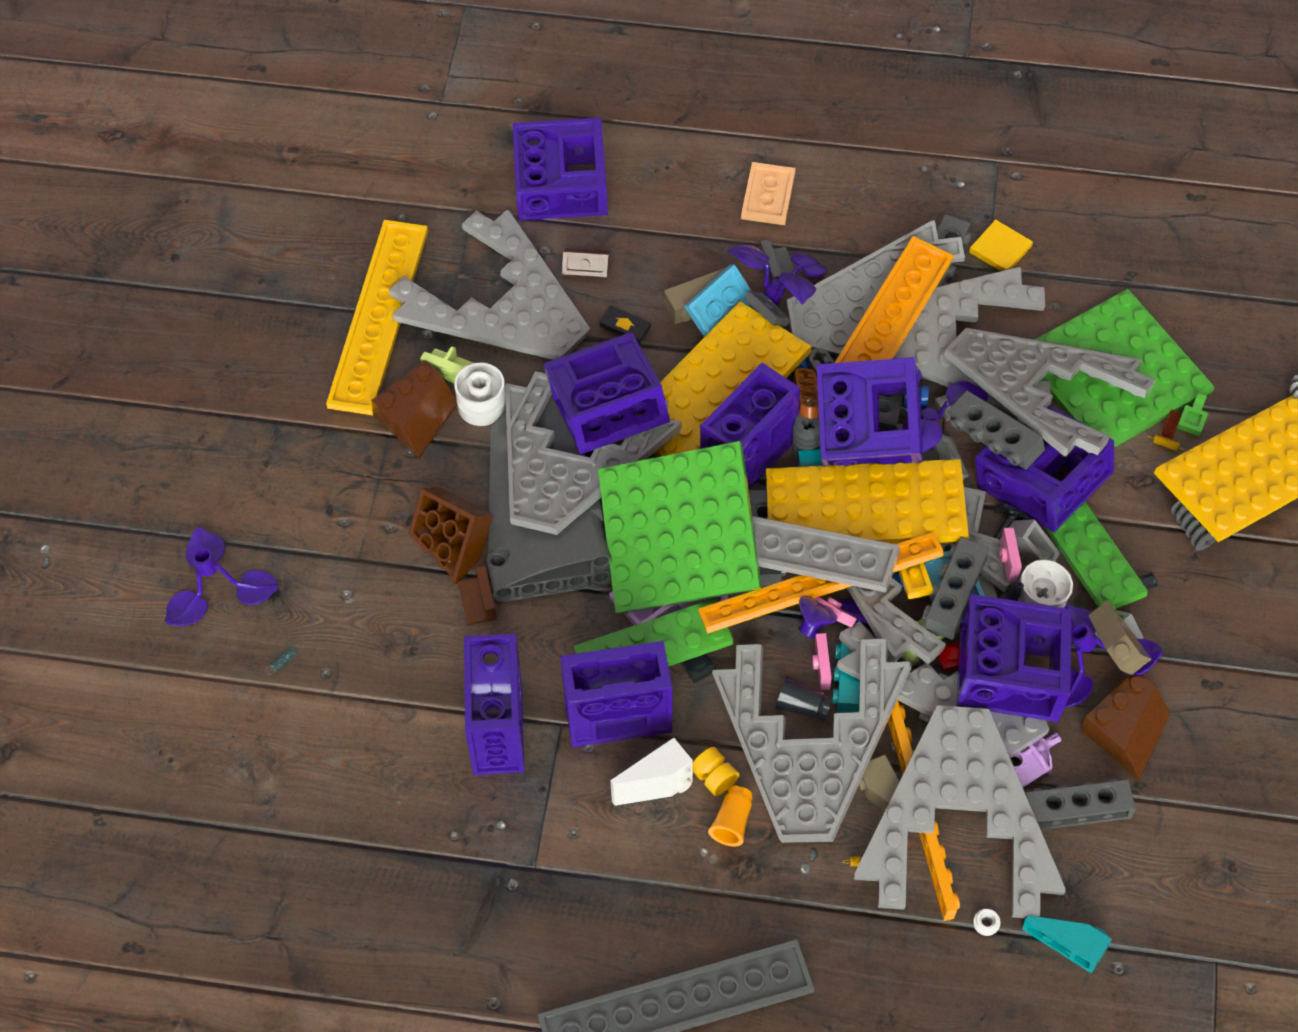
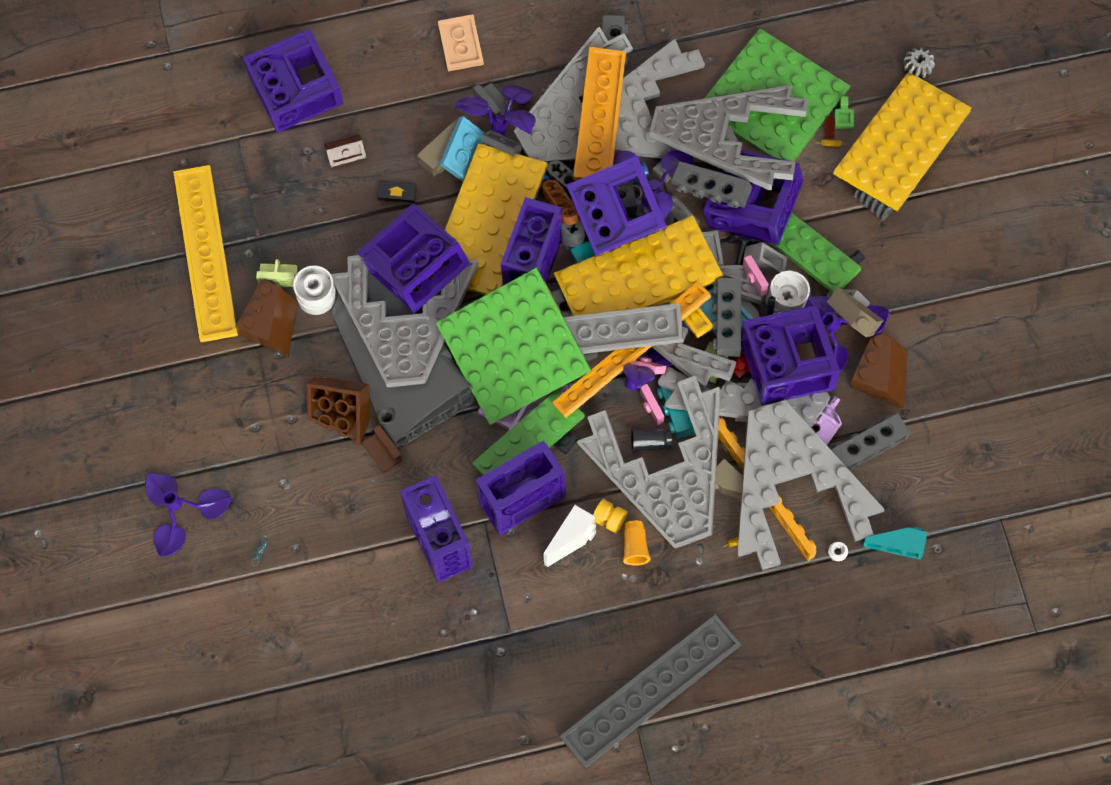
camera: 20 degrees left, 10 degrees up
(529, 318) = (321, 215): light grey wing -> none
(1001, 246) = (652, 25): yellow tile -> none

